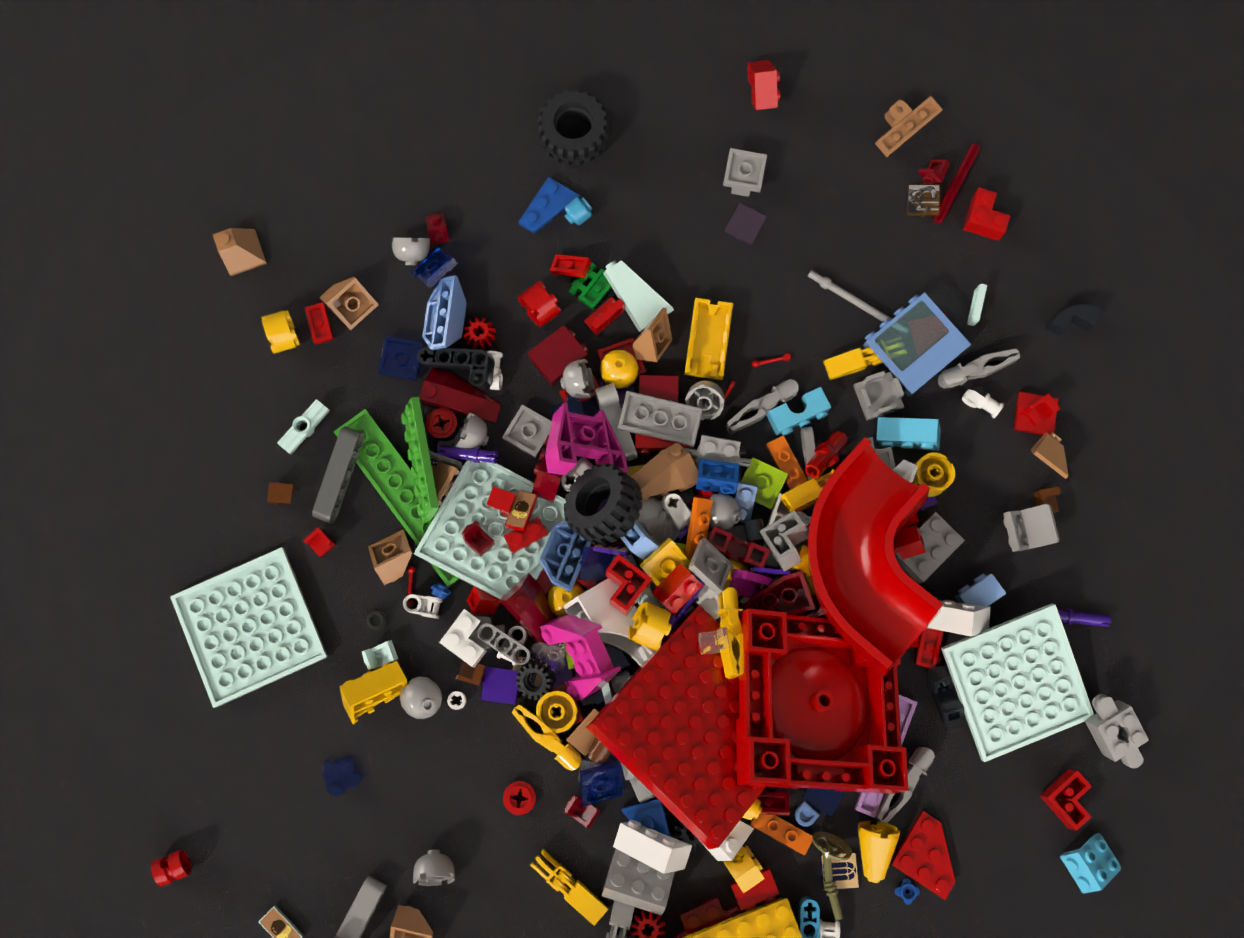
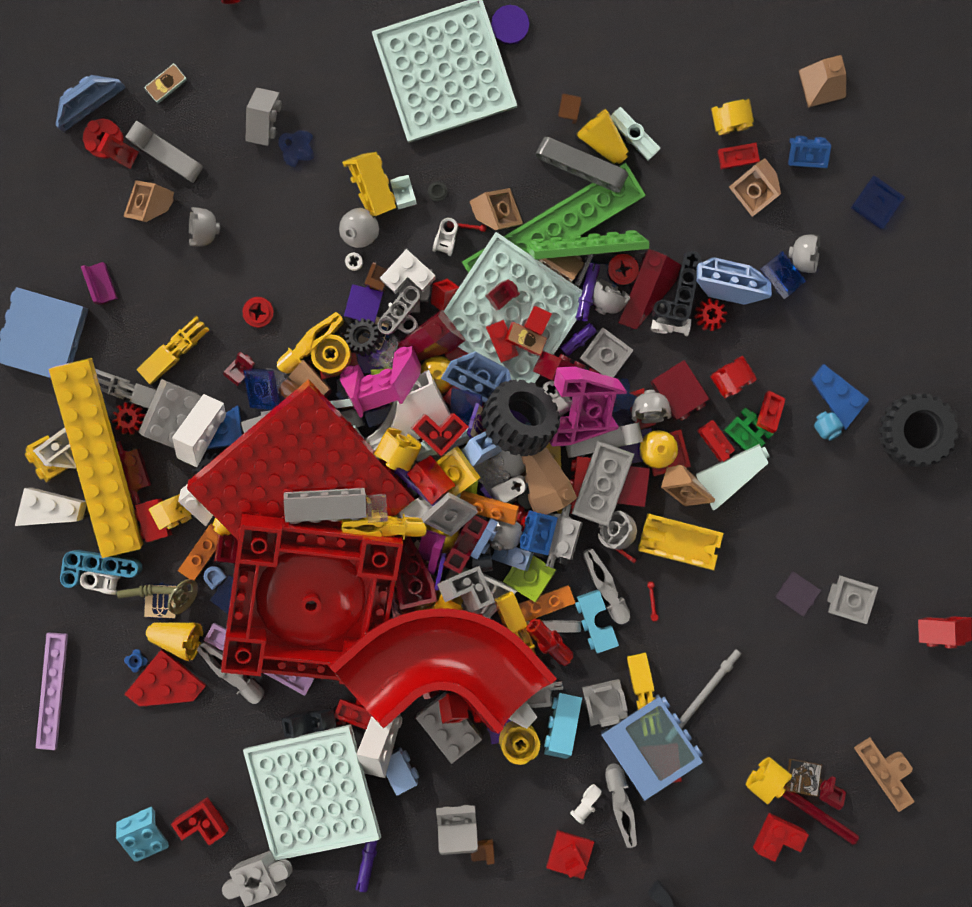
camera: 95 degrees right, 10 degrees up
(198, 563) = (510, 24): none -> dark purple tile
(309, 455) = (604, 137): none -> yellow cone
(309, 816) = (260, 116): none -> light grey brick
(310, 256) = (809, 152): none -> blue bracket
(319, 542) = (518, 142): red panel -> none
(355, 189) = (877, 202): none -> clear blue tile
(400, 358) = (693, 234): clear blue plate -> none
(437, 228) = (826, 281): dark red bracket -> none
(440, 590) = (458, 254): blue plate -> none
(516, 460) = (578, 339): none -> dark purple pin
(717, 695) = (325, 505): none -> light grey brick
(737, 530) = (488, 534): none -> medium blue plate
(932, 230) = (768, 780): none -> yellow brick
(977, 304) = (687, 814): light aqua tile -> none
(1052, 453) = (527, 861): medium nougat slope -> none

